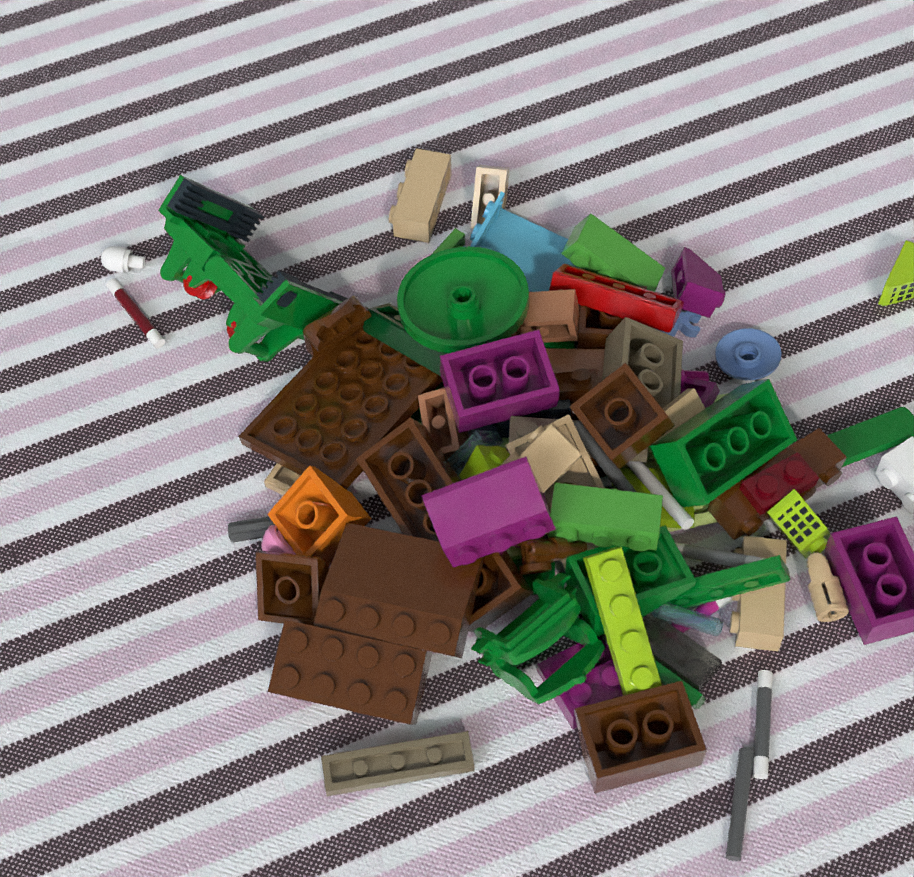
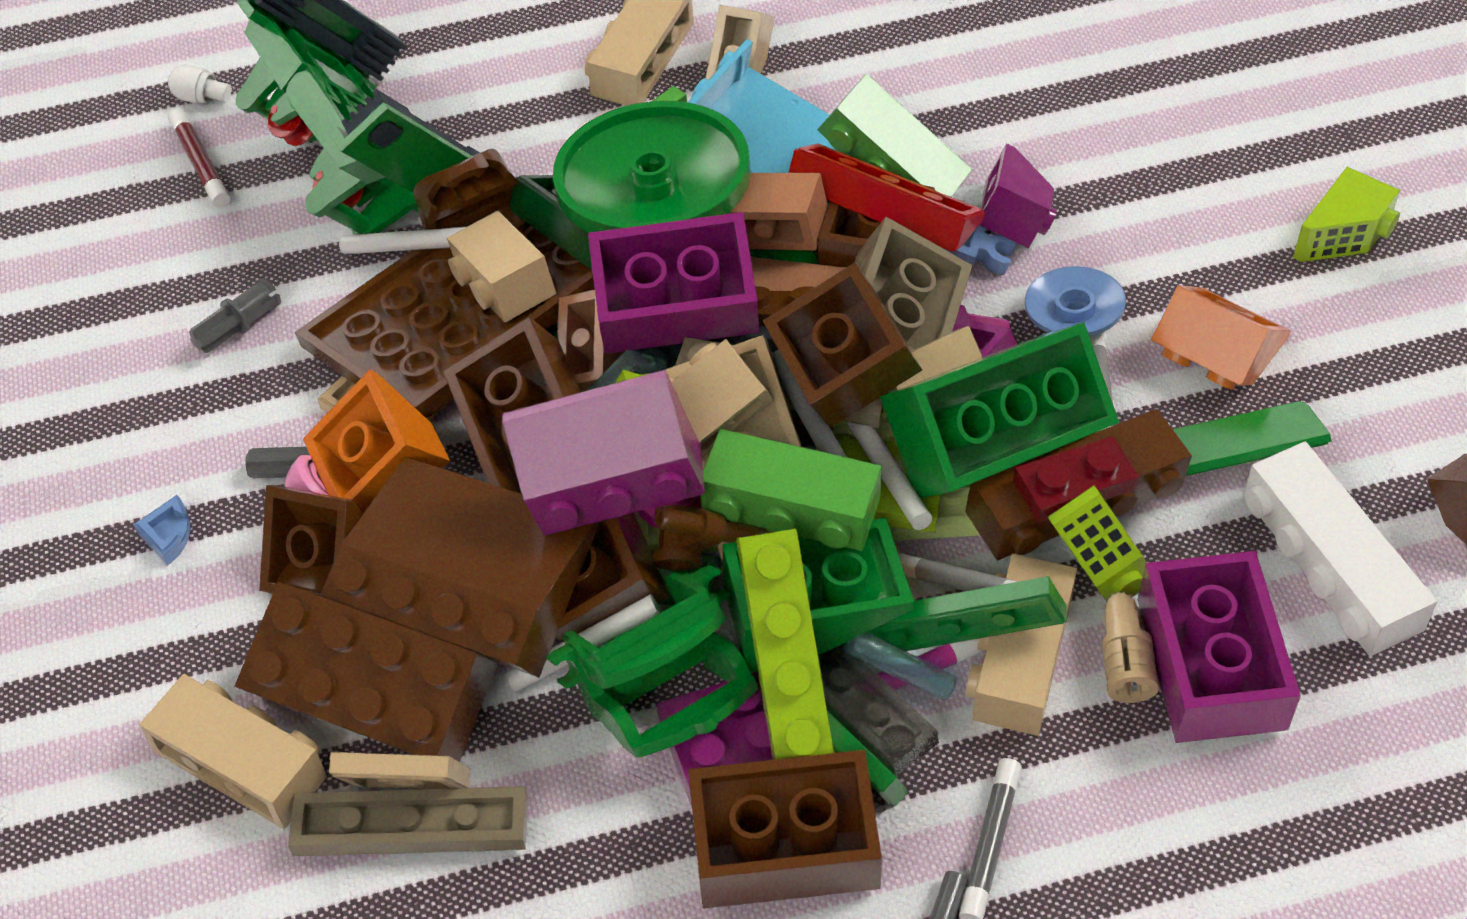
camera: 10 degrees right, 5 degrees down
(184, 586) = (166, 529): none -> medium blue tile
(193, 428) = (234, 316): none -> dark grey axle
(273, 731) = (233, 748): none -> tan brick
(297, 361) = (396, 241): none -> white bar
(374, 377) = (500, 266): none -> tan brick
(388, 734) = (399, 771): none -> tan tile
(492, 624) = (597, 635): none -> white bar
(843, 367) = (1218, 336): none -> orange slope

